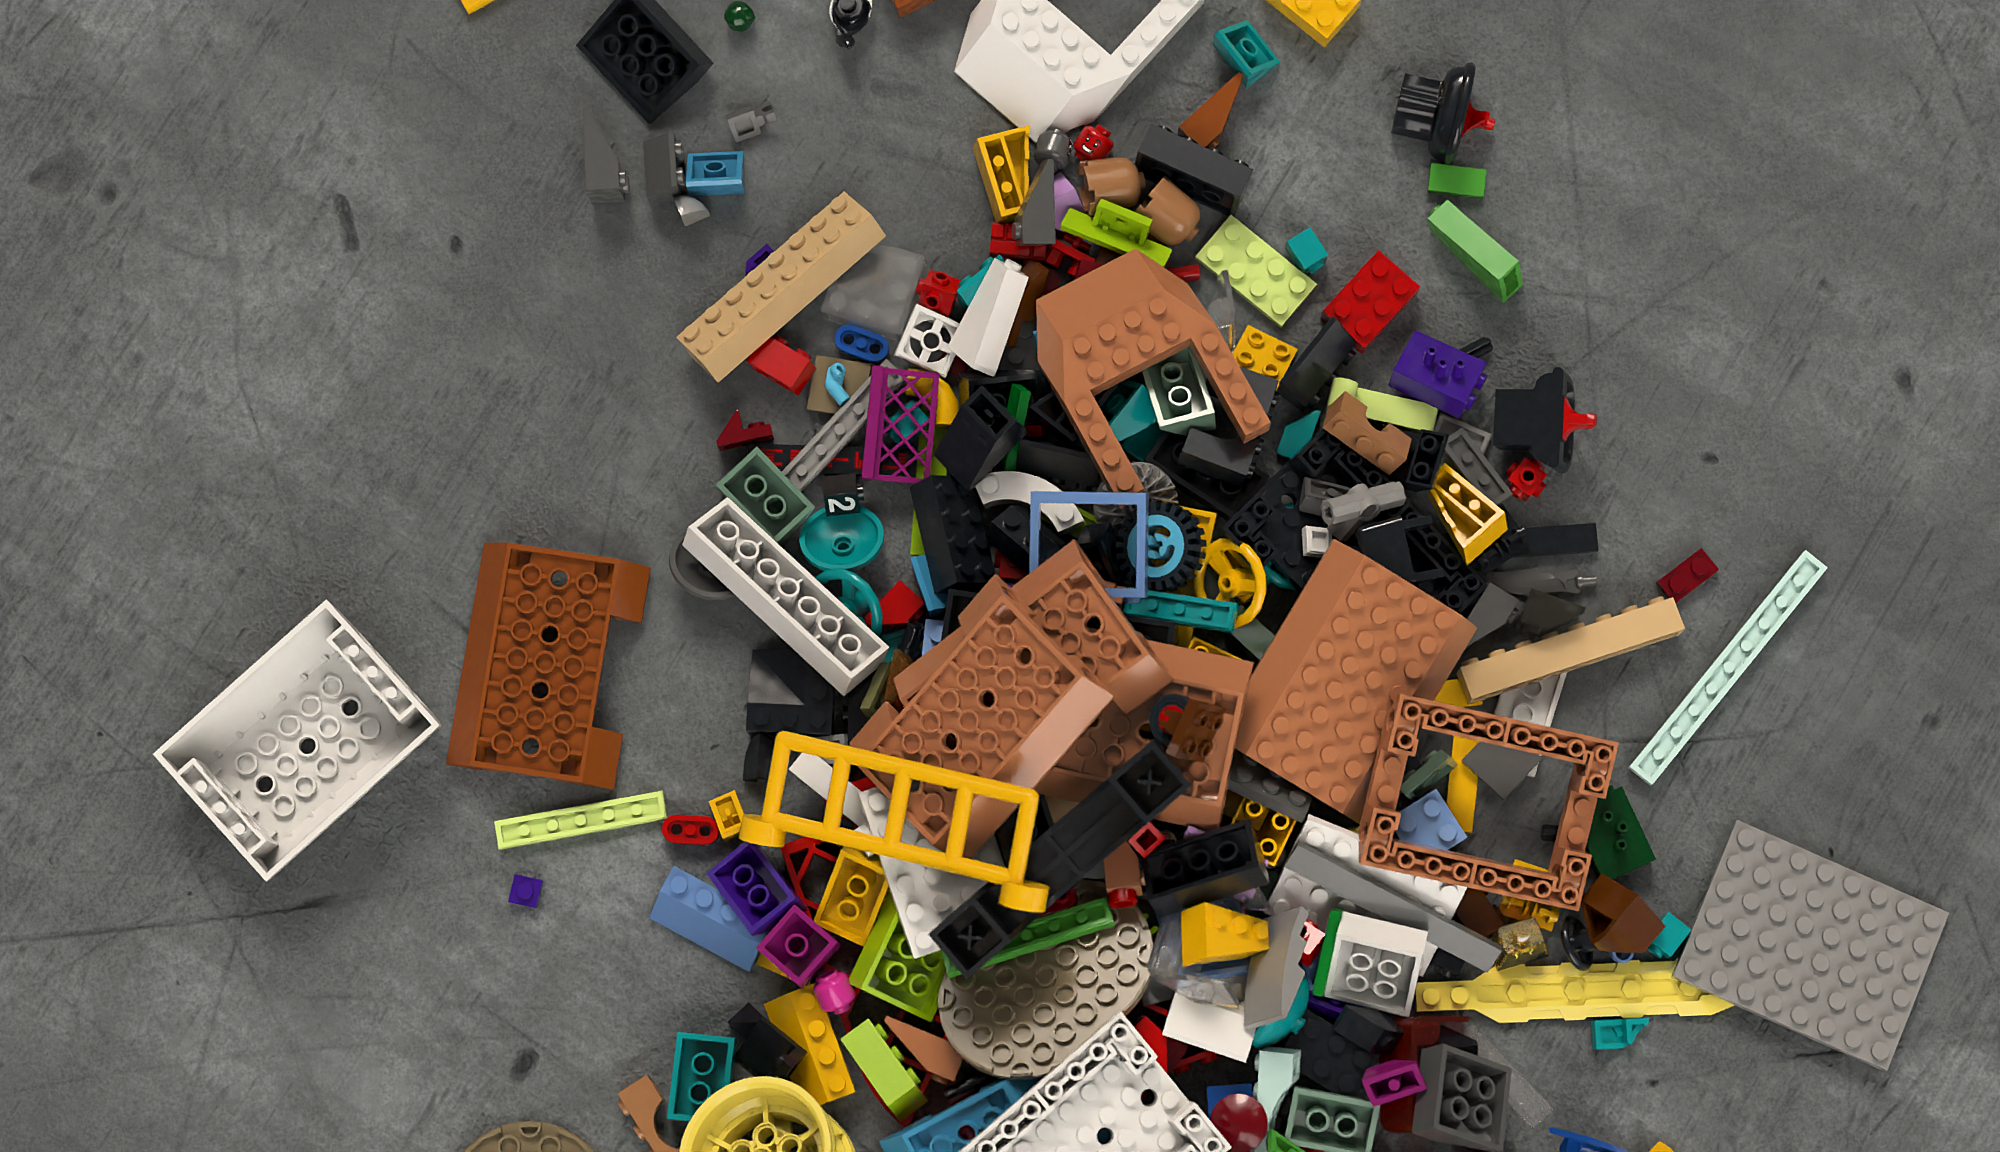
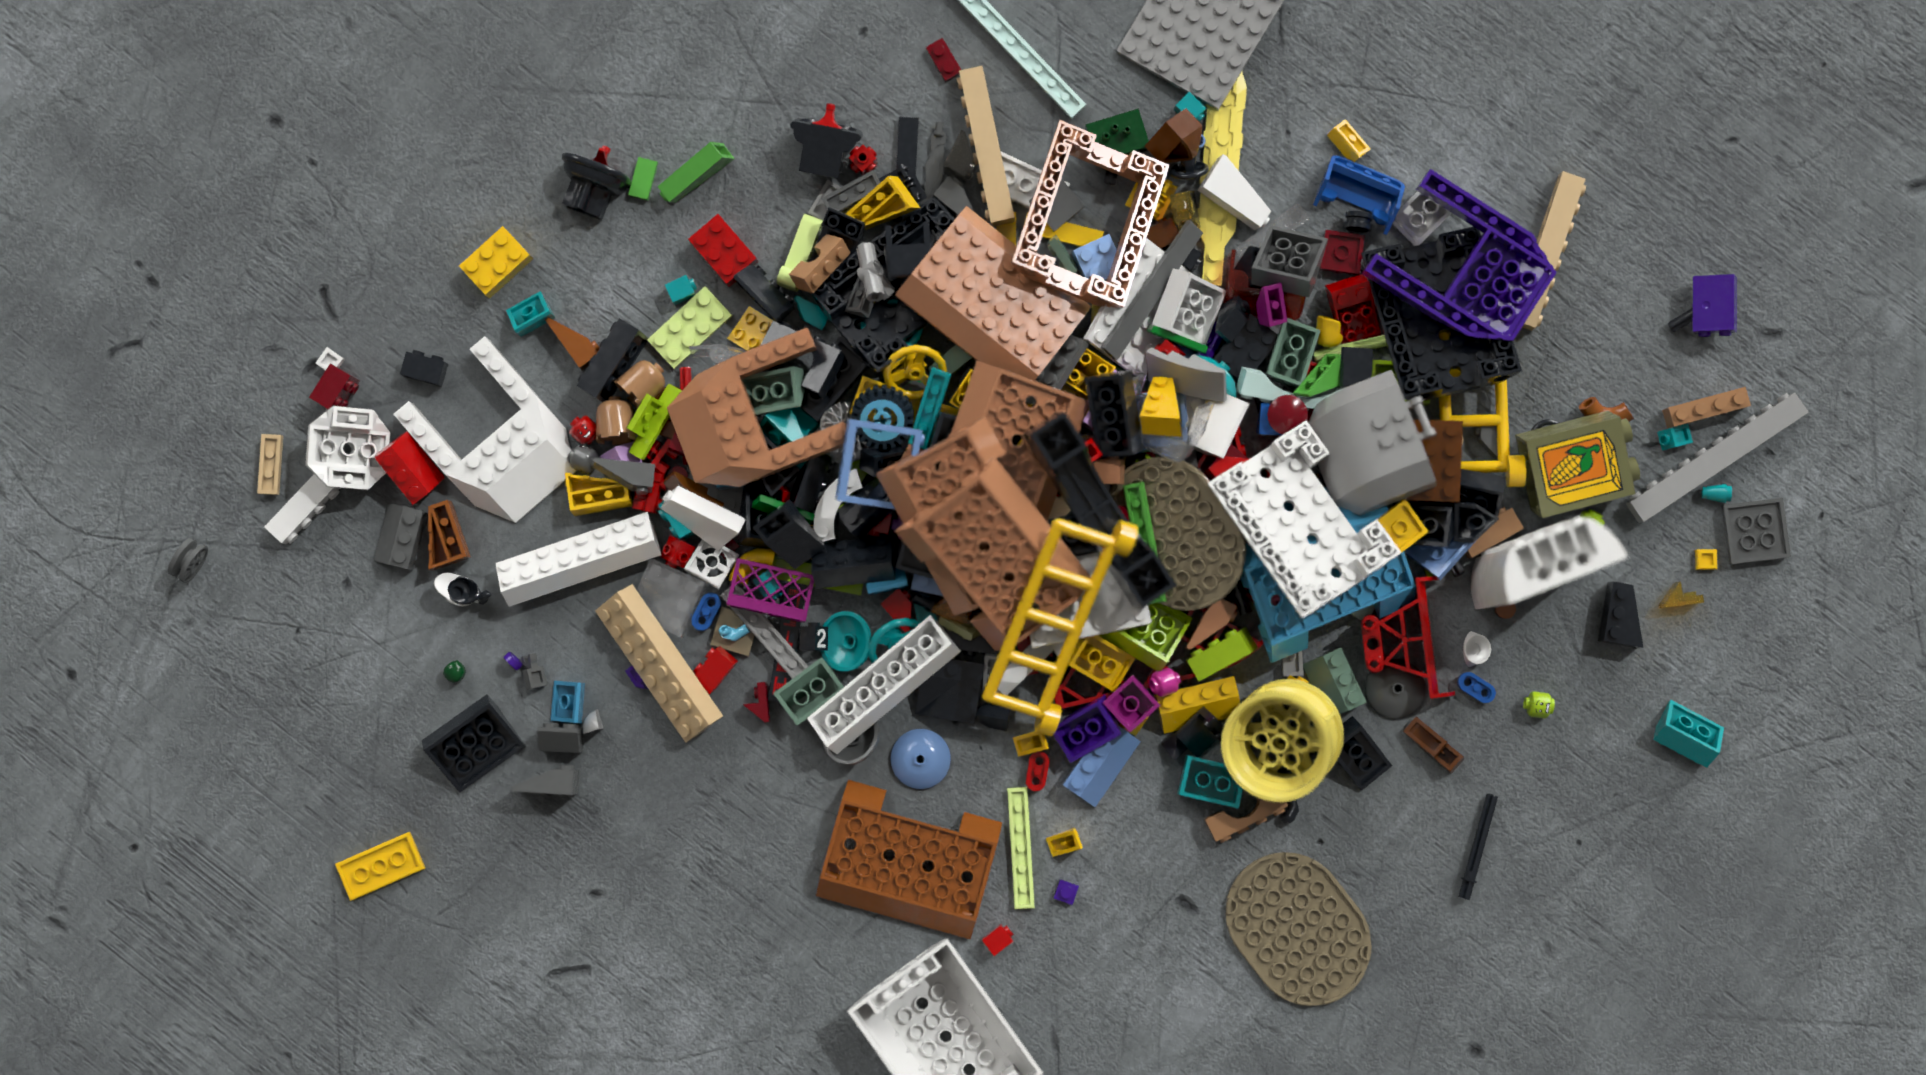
camera: 85 degrees left, 5 degrees up
(449, 802) = (998, 939): none -> red brick
(594, 880) = (1064, 842): none -> yellow slope
(703, 680) = (935, 755): none -> medium blue dish
(763, 92) = (513, 660): none -> dark purple tile
(912, 159) = (577, 559): none -> white brick
(1122, 898) = (1126, 474): red tile -> none
(1185, 725) = (1018, 412): reddish brown plate -> none
(1315, 541) = (892, 308): white tile -> none
(1441, 372) = (781, 207): dark purple piece -> none
(1551, 1012) = (1234, 194): none -> white slope
(1615, 1033) = (1251, 153): teal slope -> none

